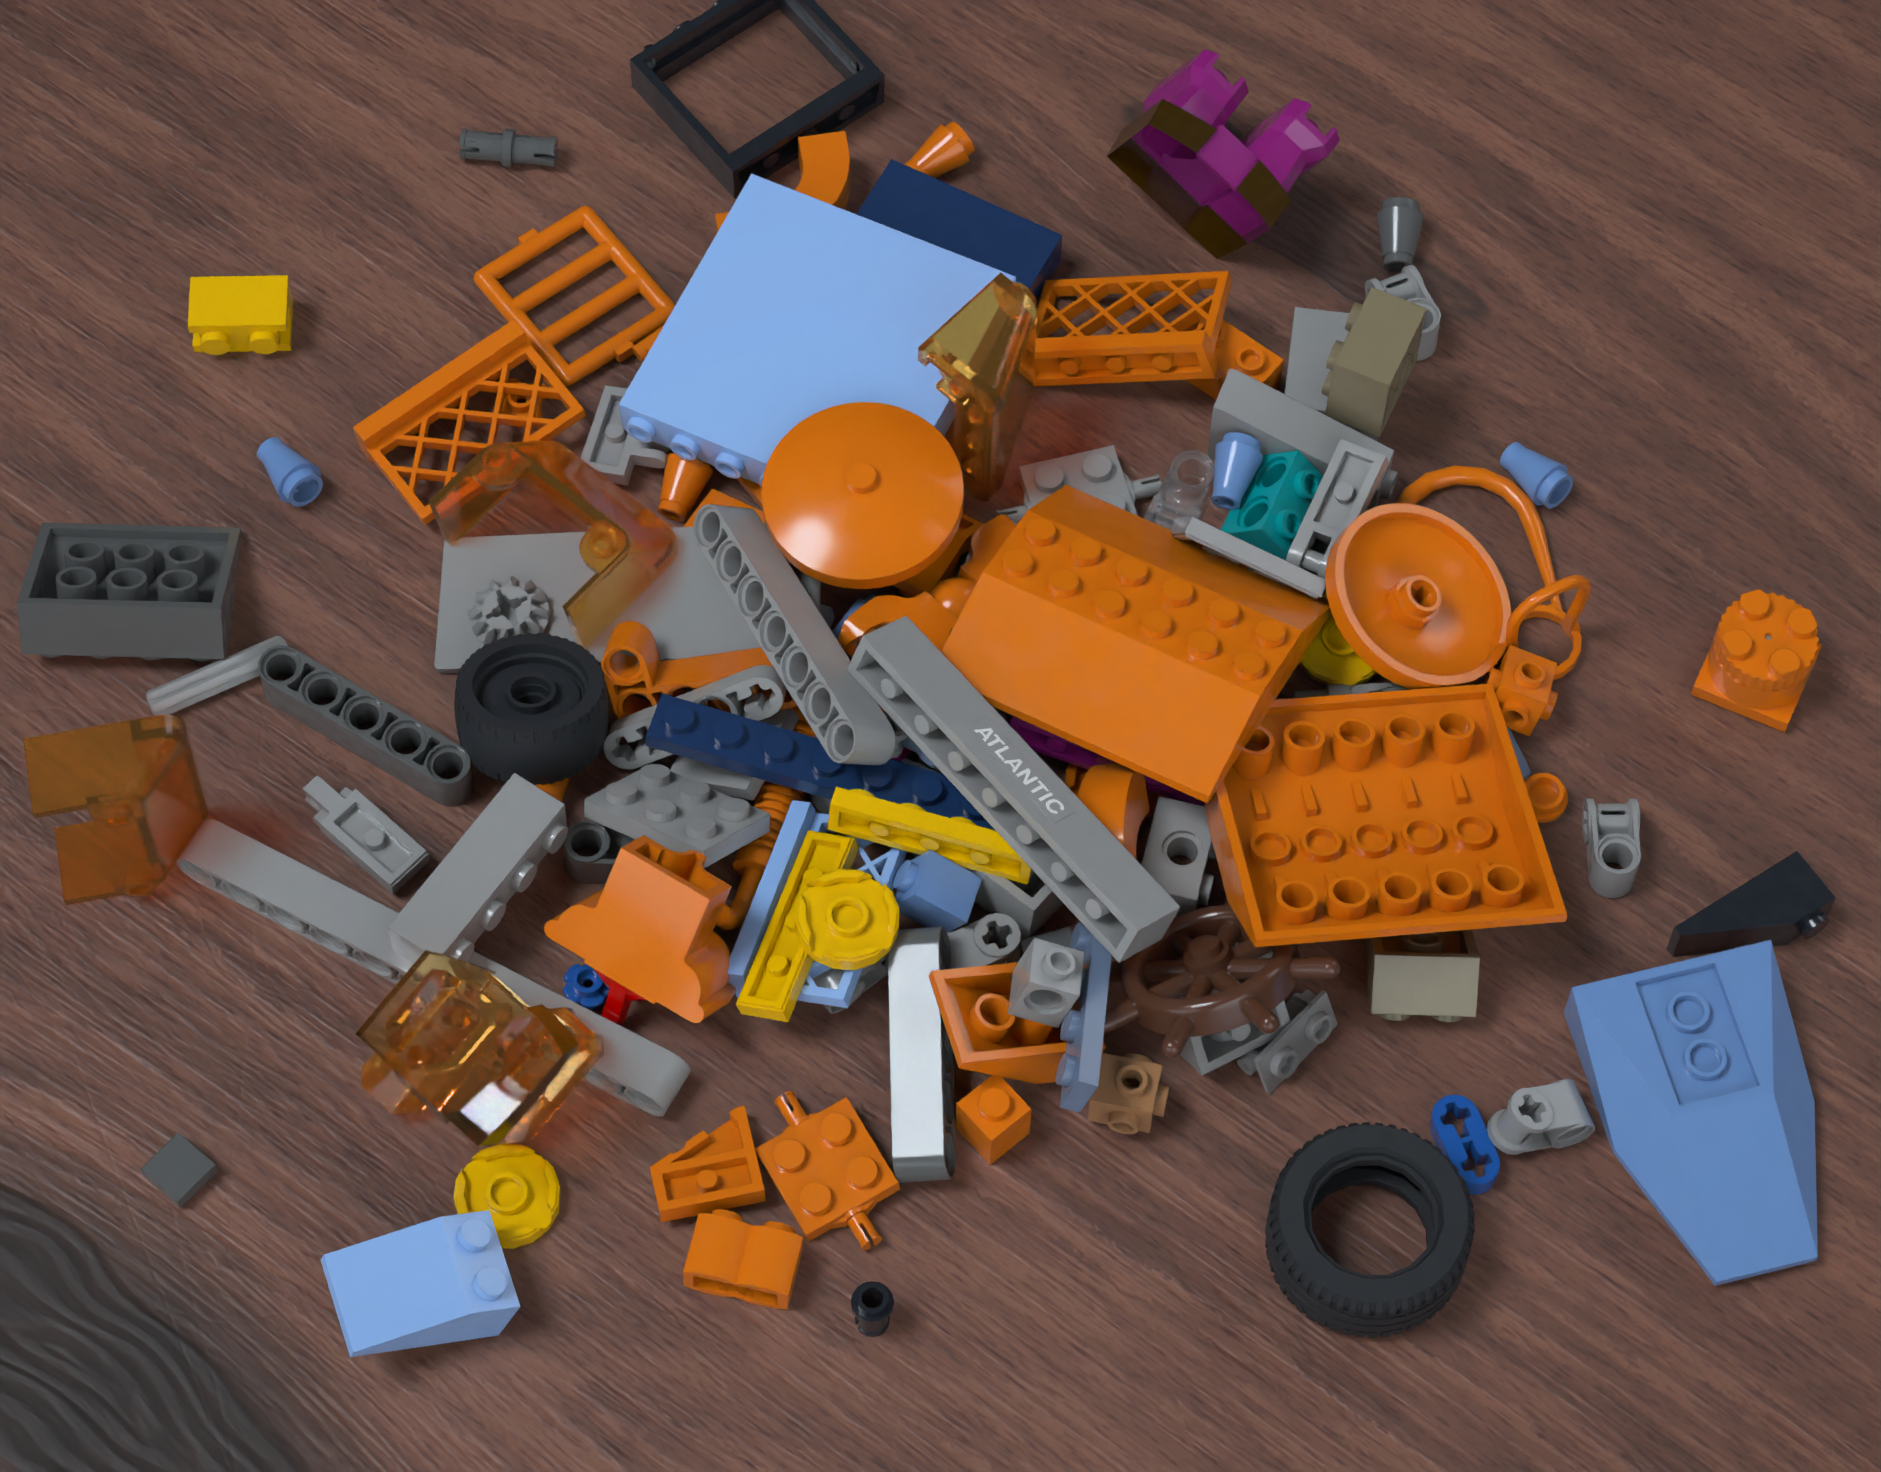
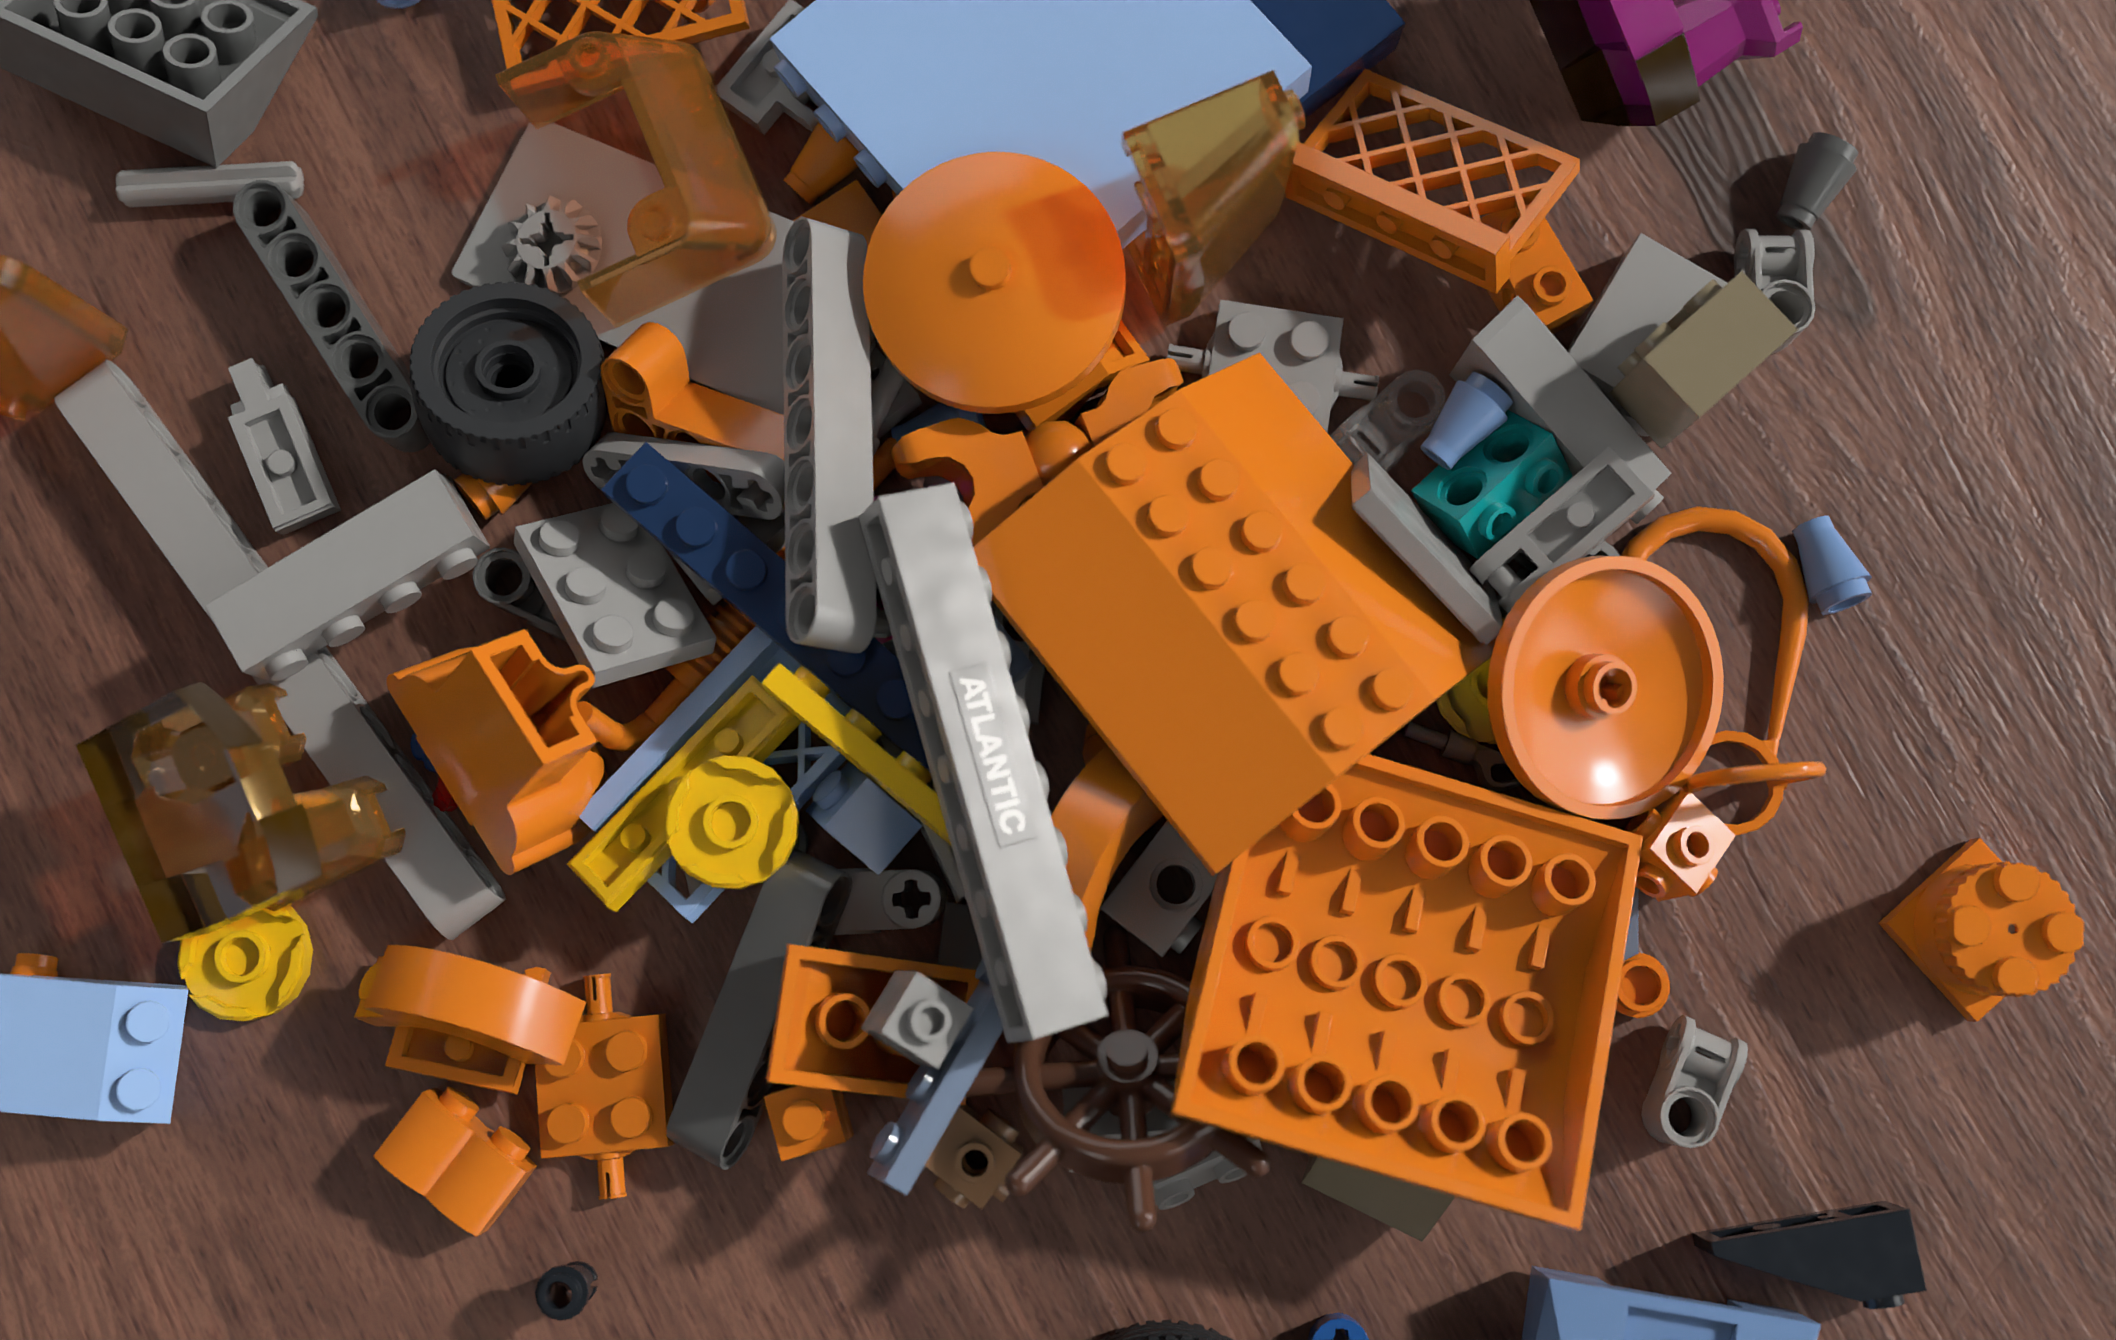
camera: 30 degrees right, 20 degrees up
(703, 1120) = (470, 1001): none -> orange arch

